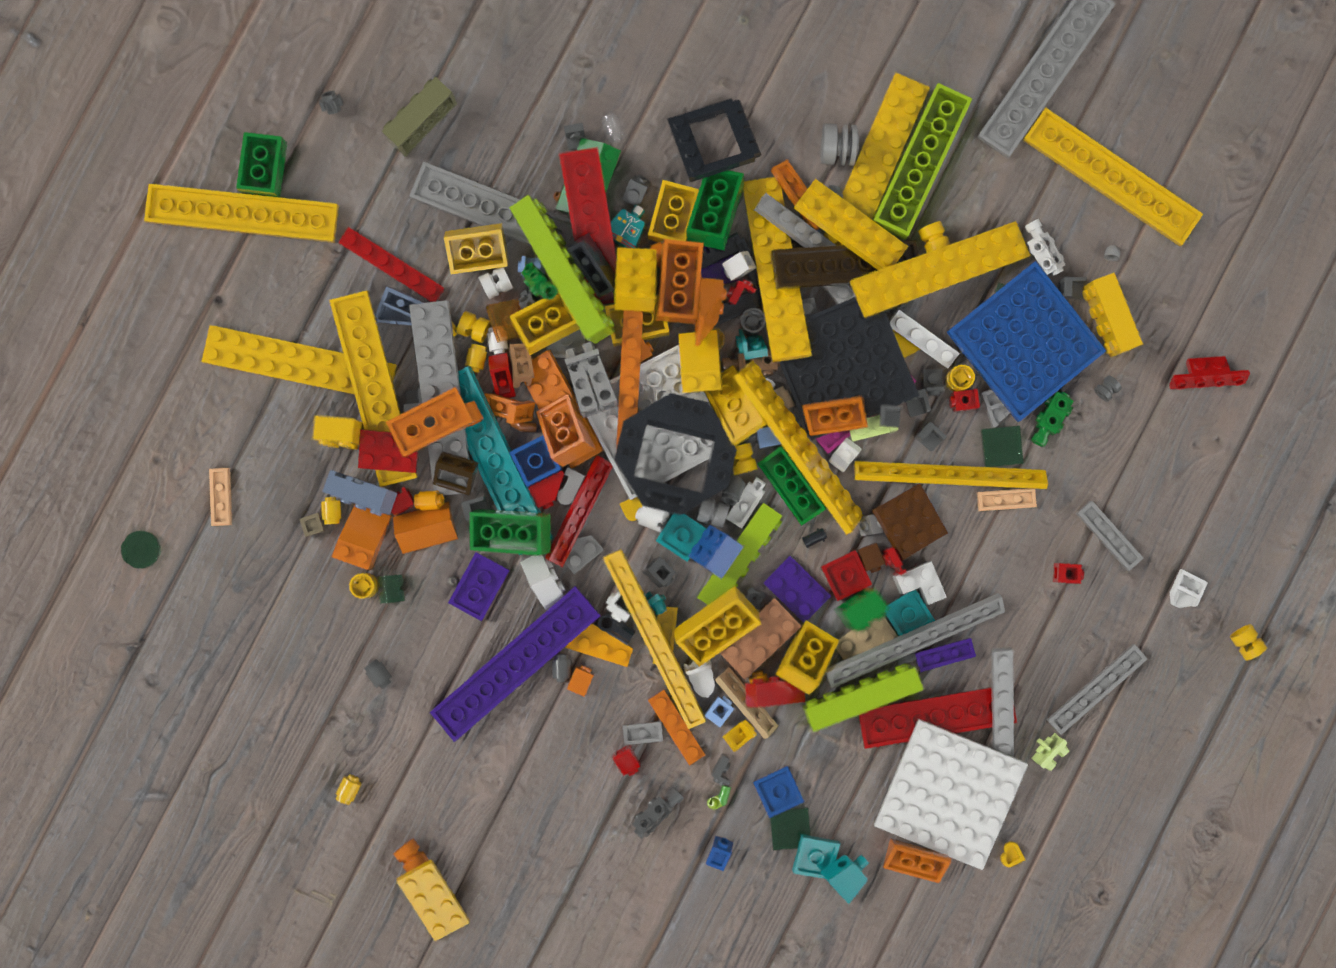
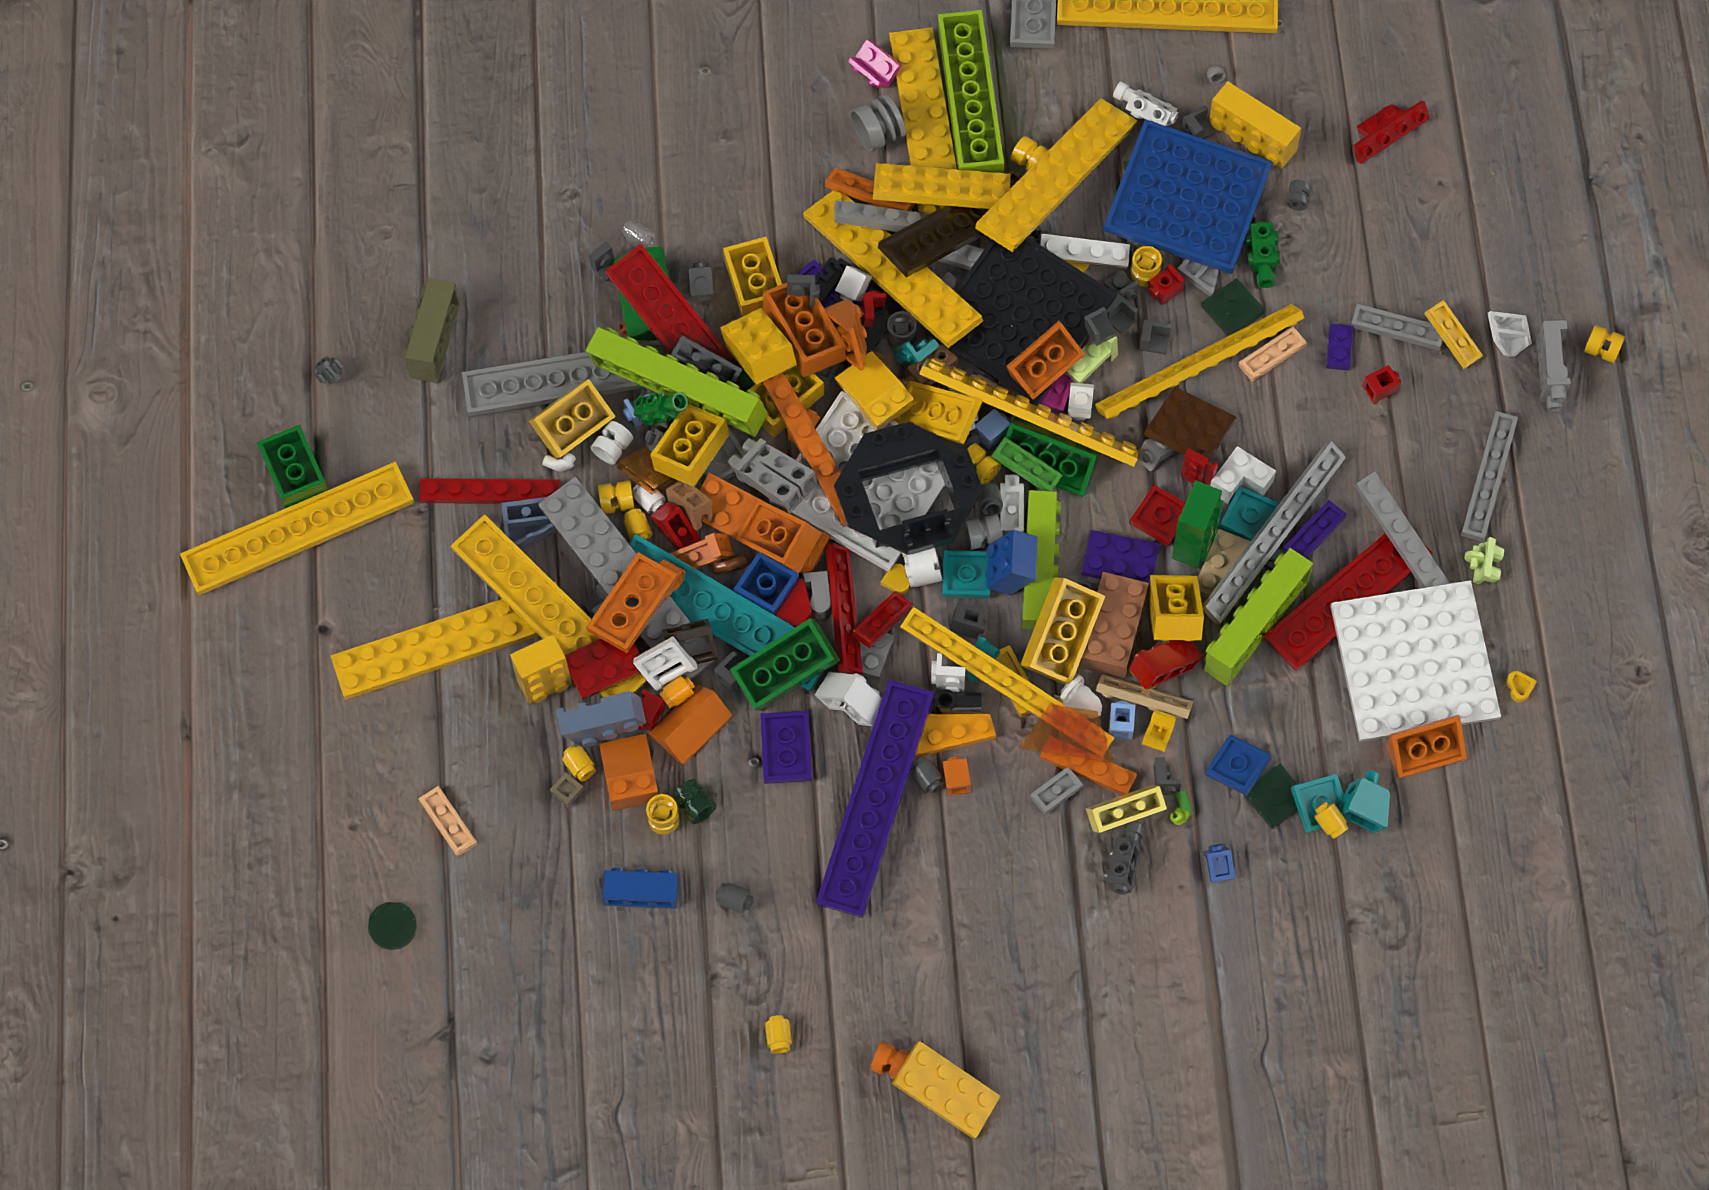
camera: 30 degrees left, 20 degrees down
(318, 628) = (640, 888): none -> blue brick
(427, 479) = (661, 658): none -> white plate
(455, 278) = (559, 464): none -> white arm
(601, 534) = (882, 619): none -> red tile
(626, 760) = (1057, 823): red slope -> none
(628, 227) = (715, 312): teal torso -> none
(674, 703) = (1069, 733): none -> clear orange wing
(680, 778) = (1126, 808): none -> light yellow brick
(688, 147) = (736, 212): black hinge -> none
(692, 253) = (803, 285): none -> dark grey bracket
(715, 209) = (793, 241): green brick -> none
(774, 482) = (1026, 465): none -> bright green tile
(812, 877) = (1331, 819): none -> yellow brick
(814, 538) = (1107, 493): black pin -> none
(867, 93) = (875, 64): none -> bracket
(871, 557) = (1175, 481): reddish brown brick -> none
(1057, 523) = (1339, 347): none -> dark purple plate
(1145, 567) = (1453, 334): none -> yellow tile
(1198, 636) = (1551, 368): none -> light grey hips

